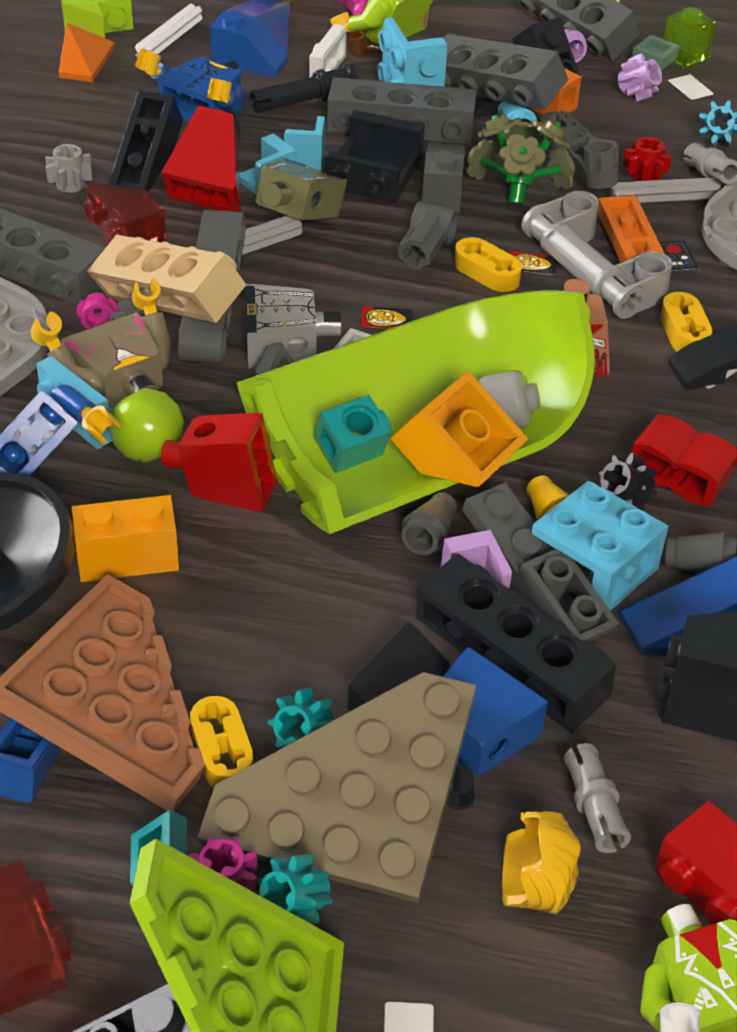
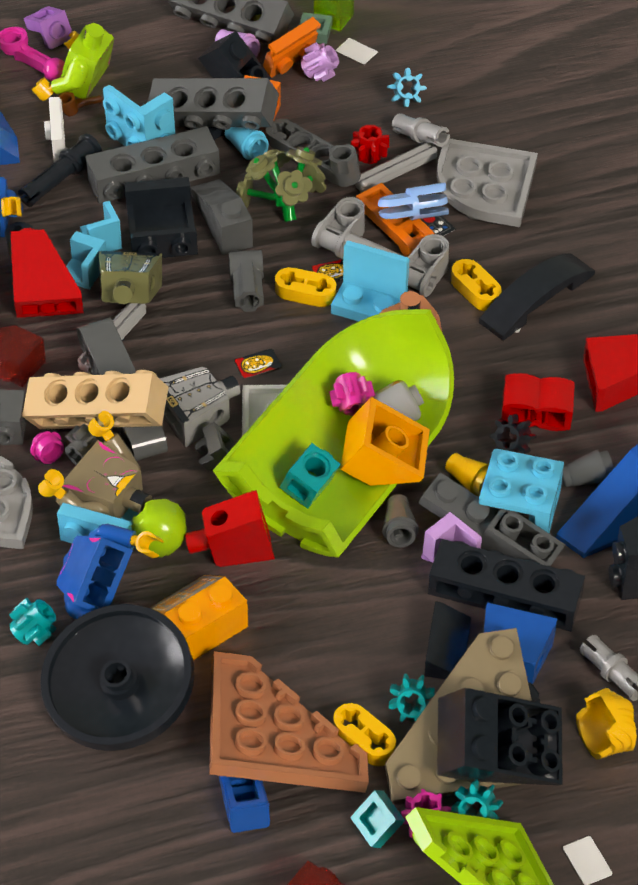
camera: 25 degrees left, 5 degrees up
(370, 816) = (499, 739): none -> black slope
(453, 362) = (351, 392): none -> dark pink gear
(558, 258) = (370, 281): none -> medium azure bracket
(607, 52) = (290, 47): none -> orange plate
(654, 217) = (412, 203): none -> light blue arm

